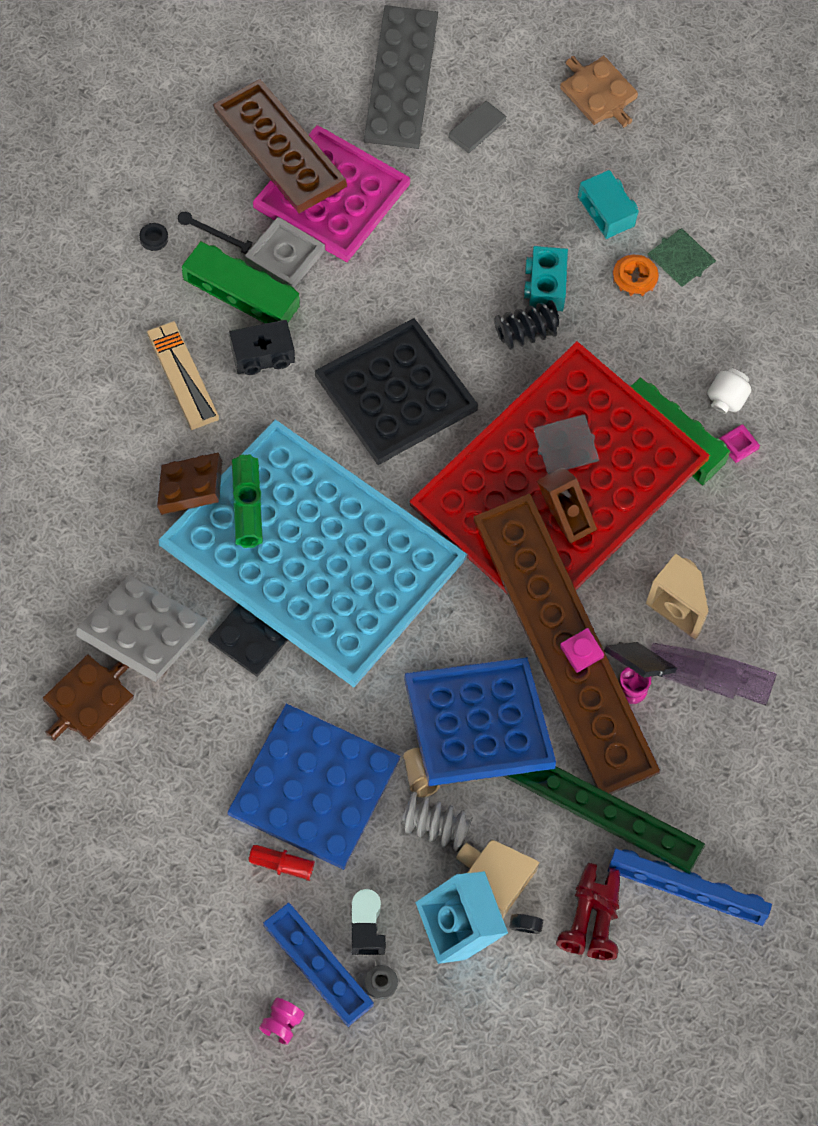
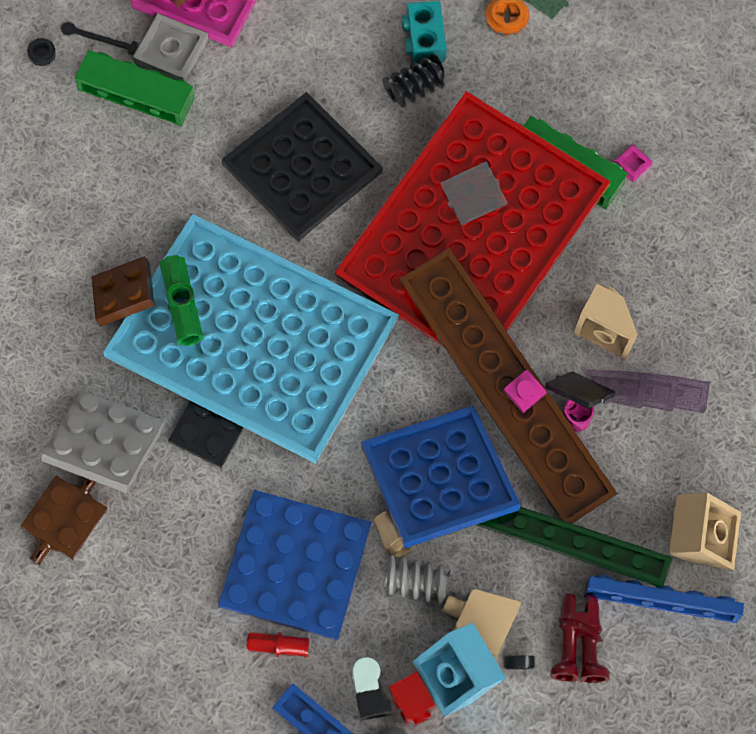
camera: 10 degrees left, 5 degrees up
(183, 375) = (95, 184): tan tile -> none
(272, 337) = (153, 141): black brick -> none
(408, 940) = (412, 699): none -> red brick
(567, 504) = (485, 251): reddish brown slope -> none
(729, 391) = (615, 114): white head -> none
(746, 825) = (705, 531): none -> tan slope

